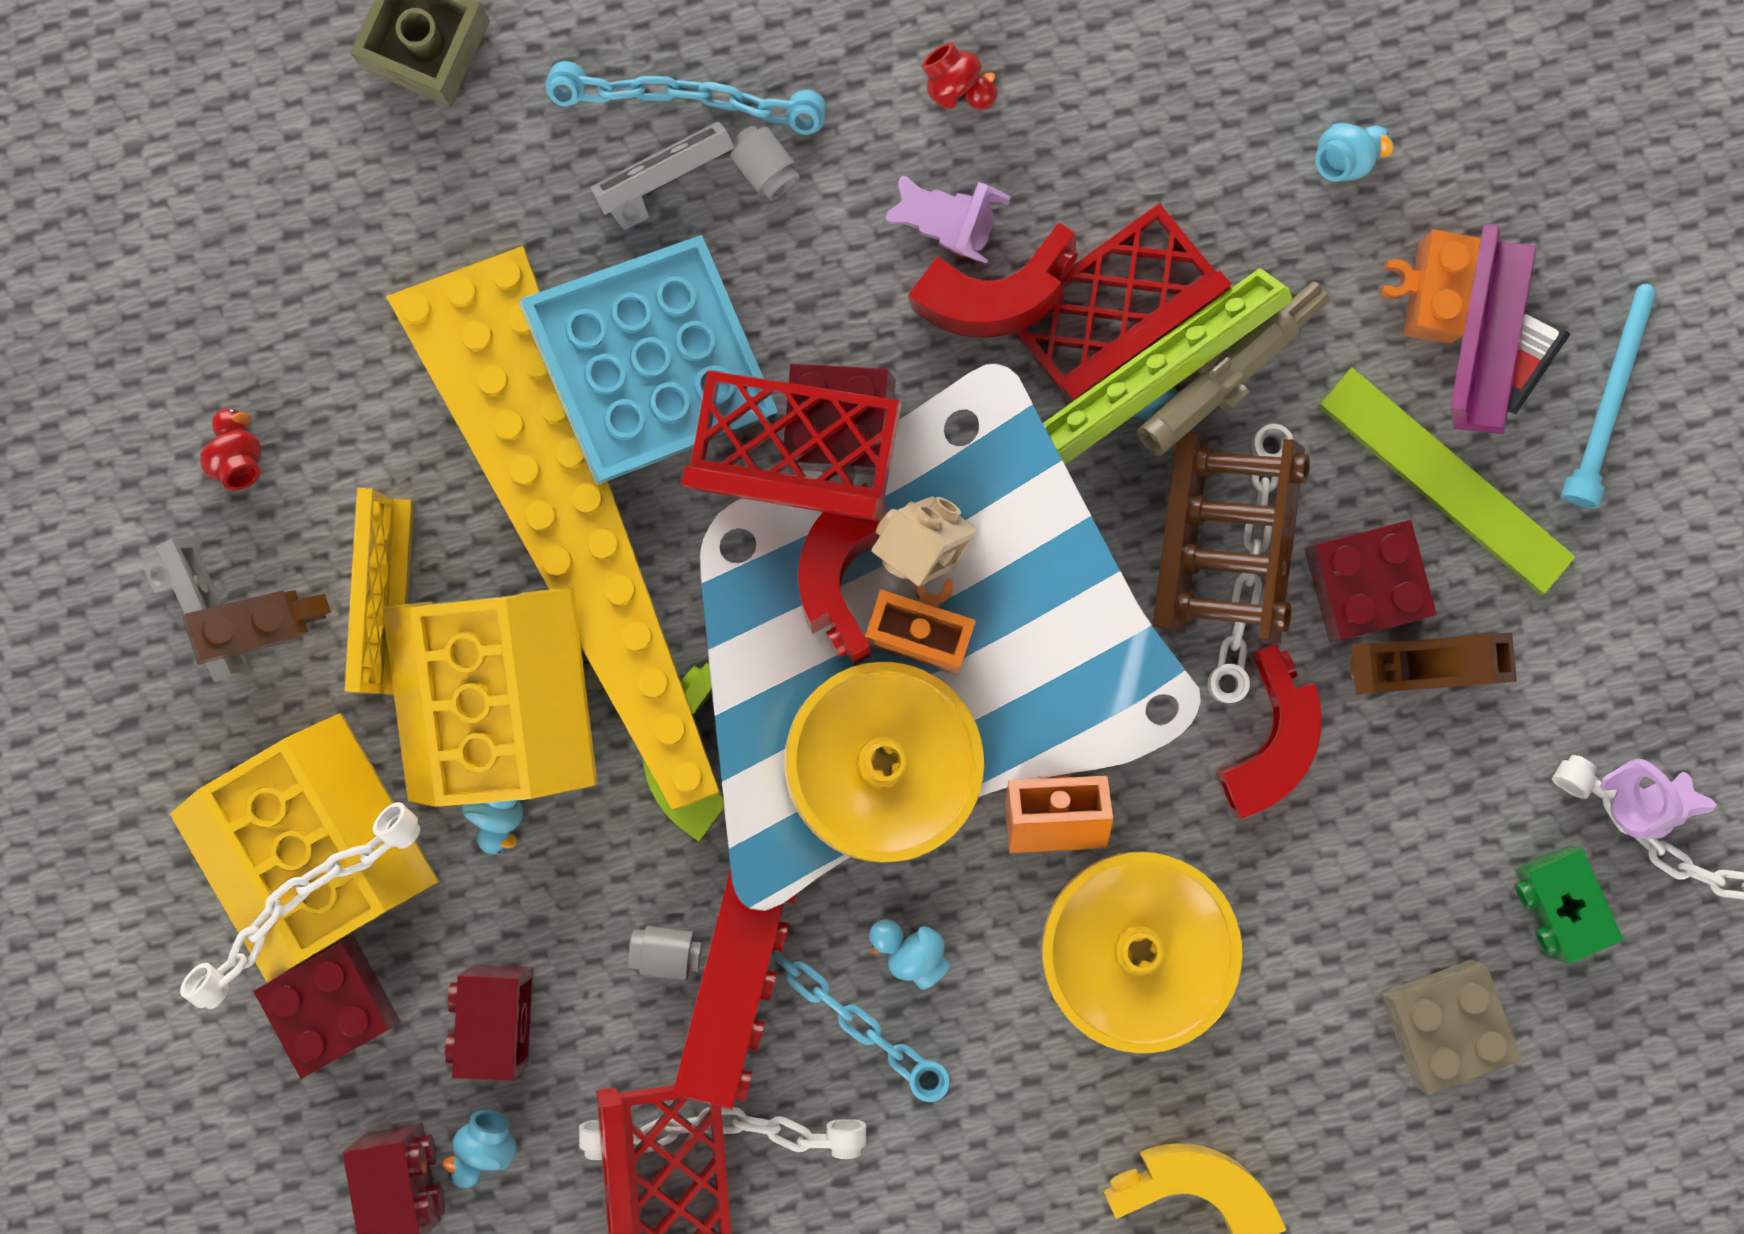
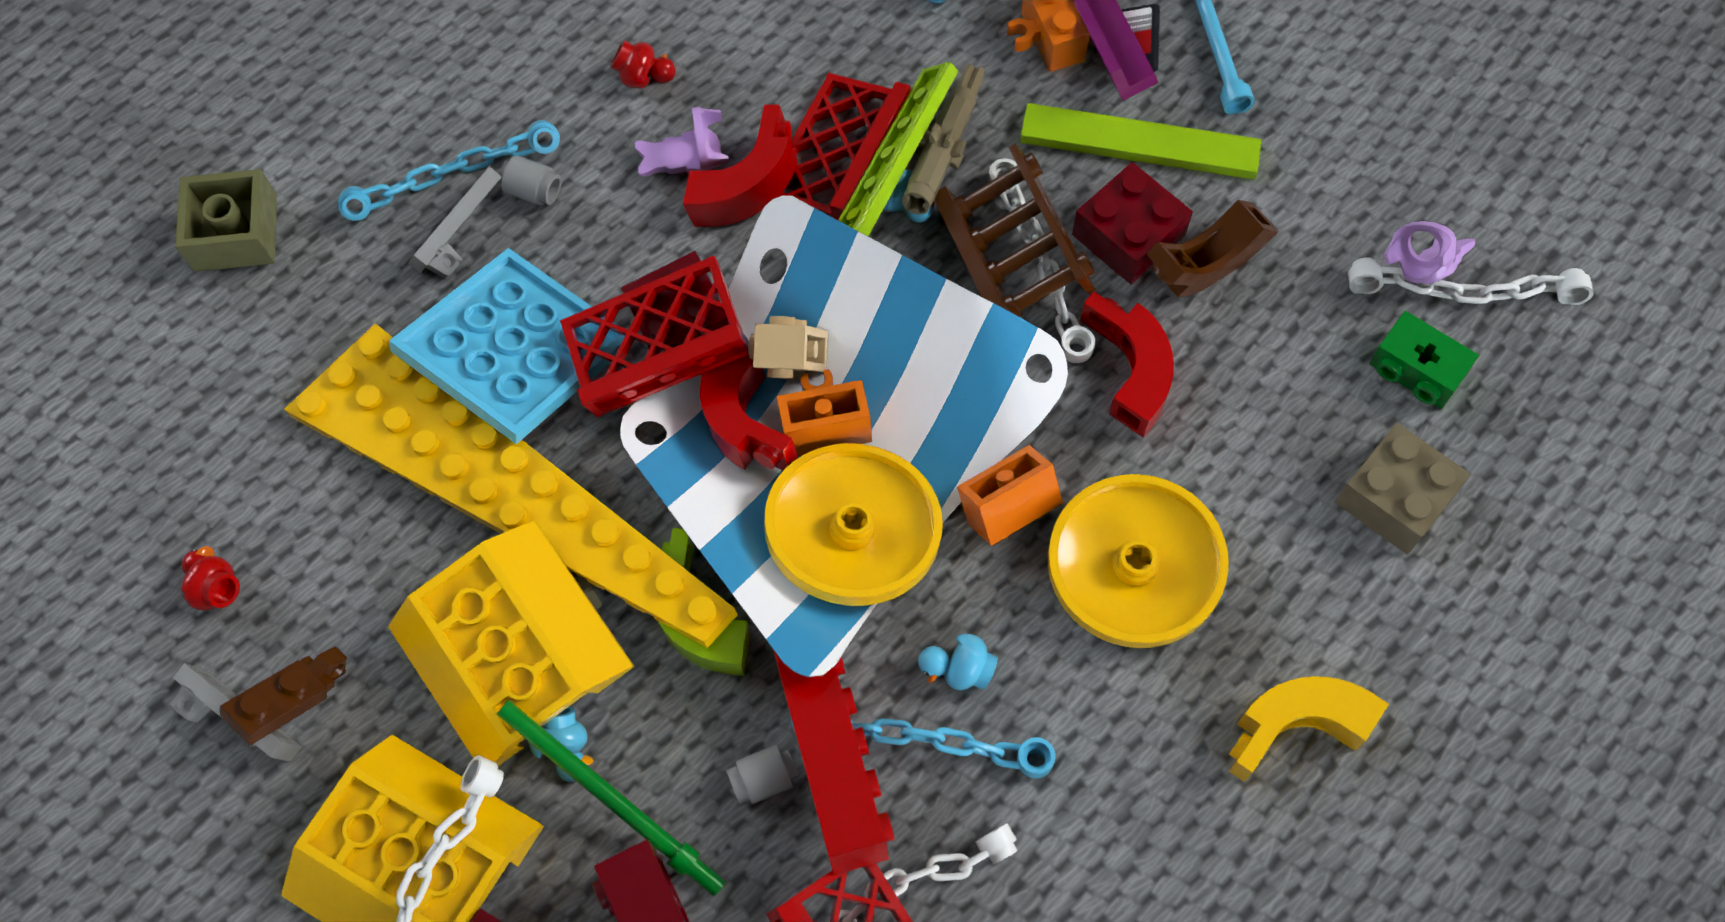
camera: 25 degrees left, 20 degrees down
(378, 580) = (374, 606): yellow fence -> none
(549, 985) = (681, 857): none -> green bar

